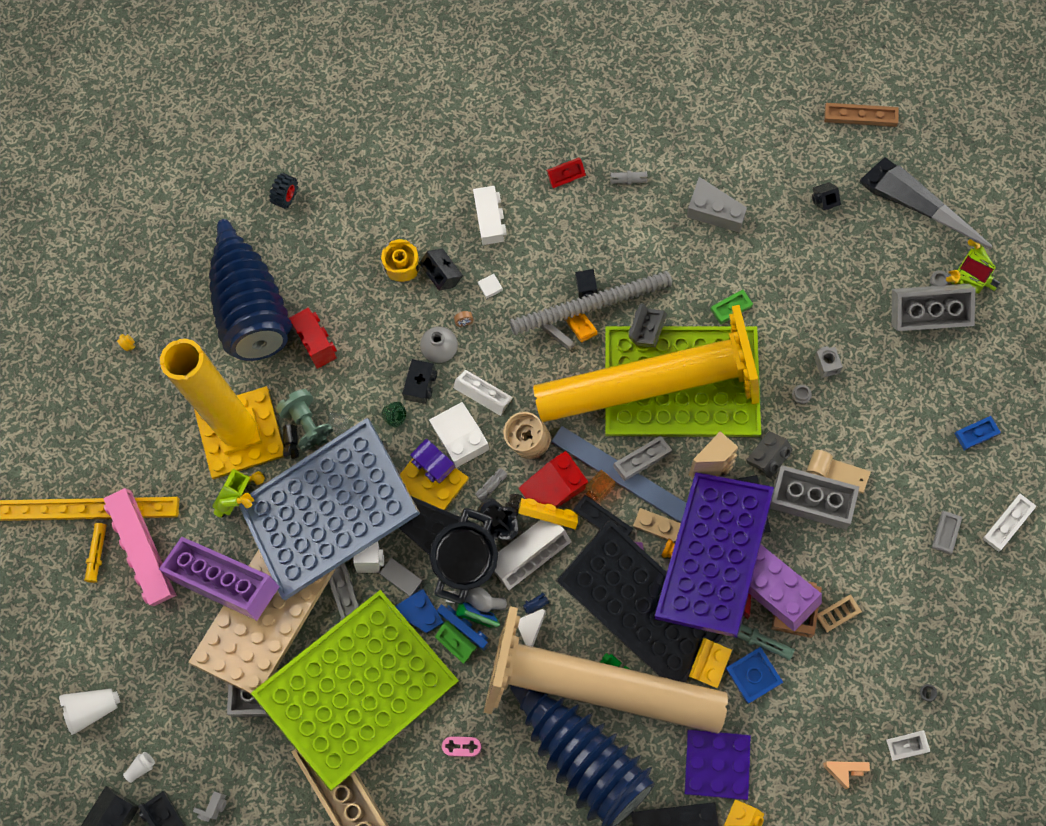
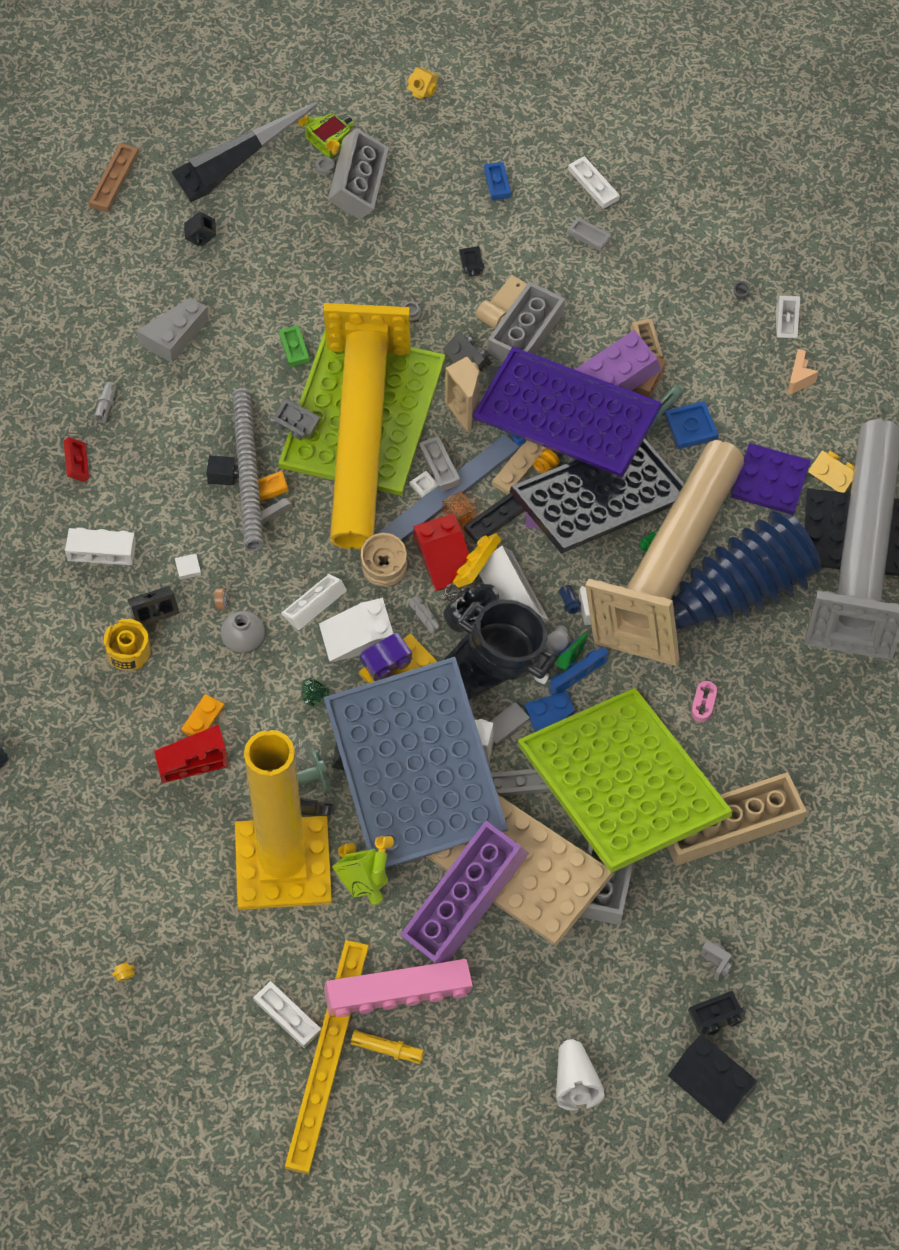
camera: 85 degrees left, 10 degrees down
(110, 470) = (287, 1014): none -> white plate
(142, 764) = (655, 1031): white cone -> none
(245, 299) = (118, 811): dark blue cone -> none
(354, 337) = (203, 715): none -> light orange plate
(417, 371) = (283, 658): black brick -> none
(455, 642) = (592, 682): bright green plate -> none
(620, 450) = (423, 484): none -> white tile
(710, 663) = (671, 456): yellow plate -> none
(824, 368) = (384, 279): light grey brick -> none
(874, 432) = (471, 261): none -> black bracket

